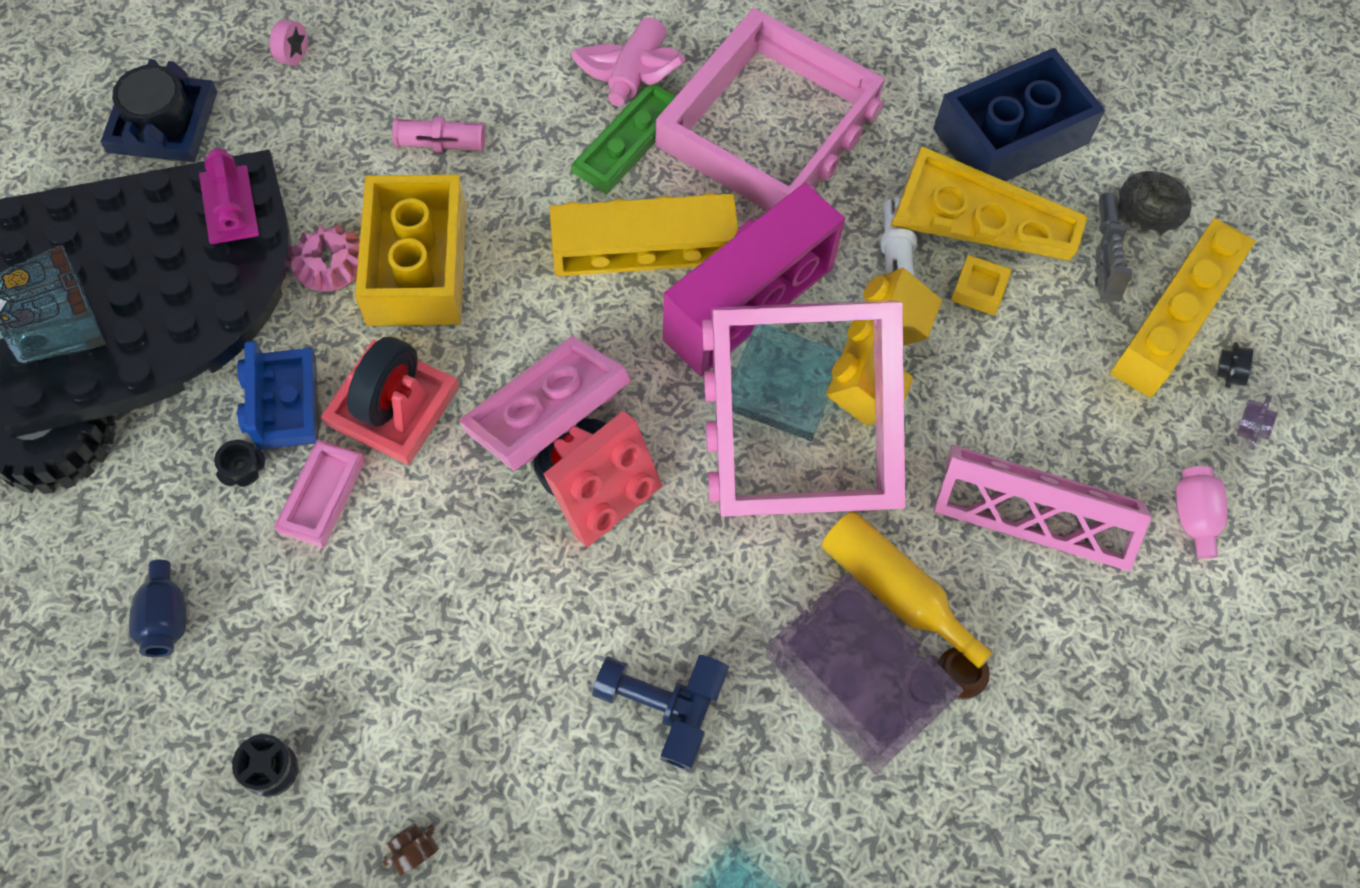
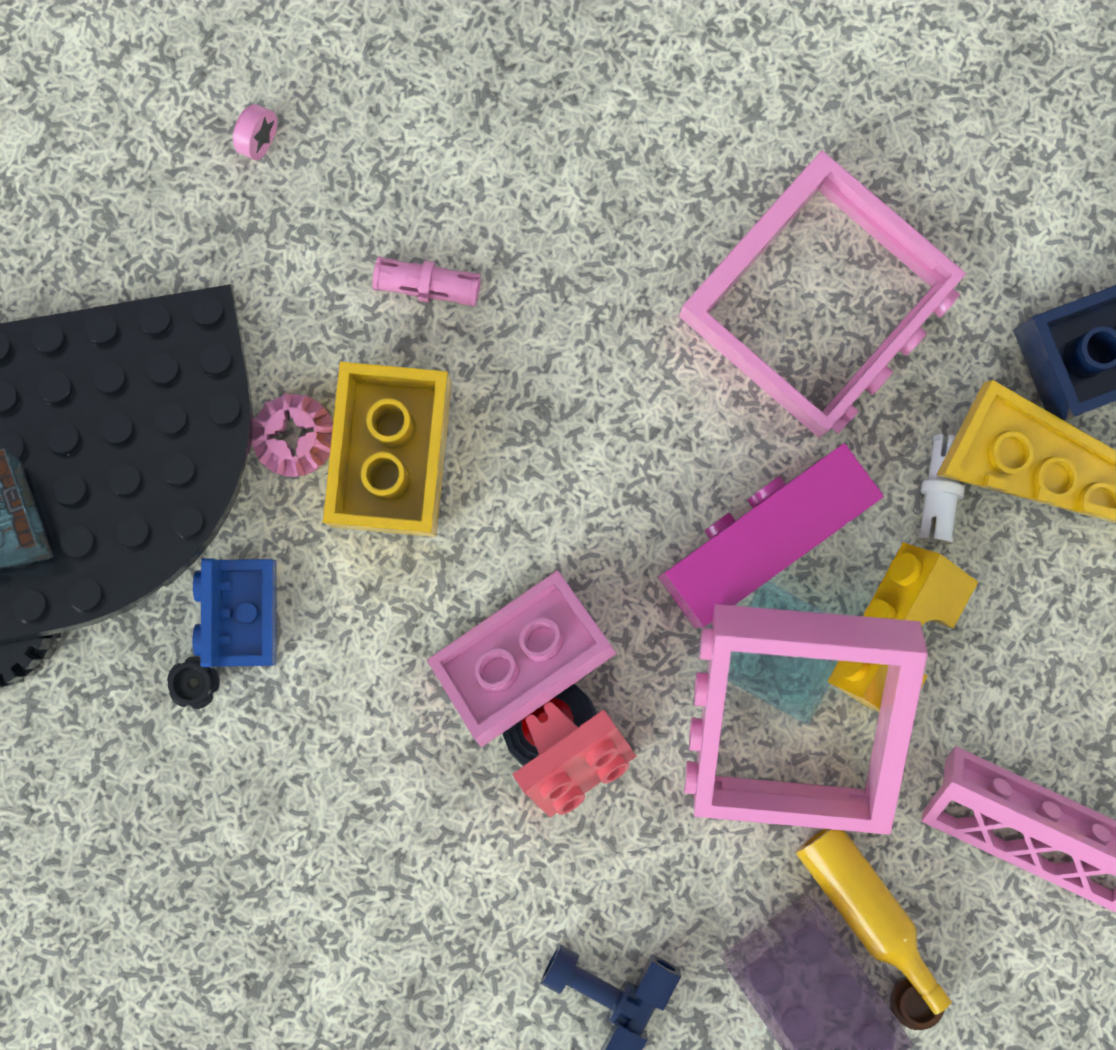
camera: 10 degrees right, 20 degrees up
(157, 612) = (111, 843): dark blue plant -> none
(159, 113) = (104, 223): piece -> none
(227, 199) = (183, 375): dark pink hinge -> none
(256, 758) = (207, 1024): black wheel -> none
(320, 493) = (276, 724): bright pink tile -> none
(391, 400) = (354, 630): plate -> none
(623, 140) = (648, 304): bright green tile -> none
(634, 63) = (664, 201): bright pink plant -> none
(640, 233) = (653, 449): yellow brick -> none
(981, 285) = (1027, 555): yellow plate -> none

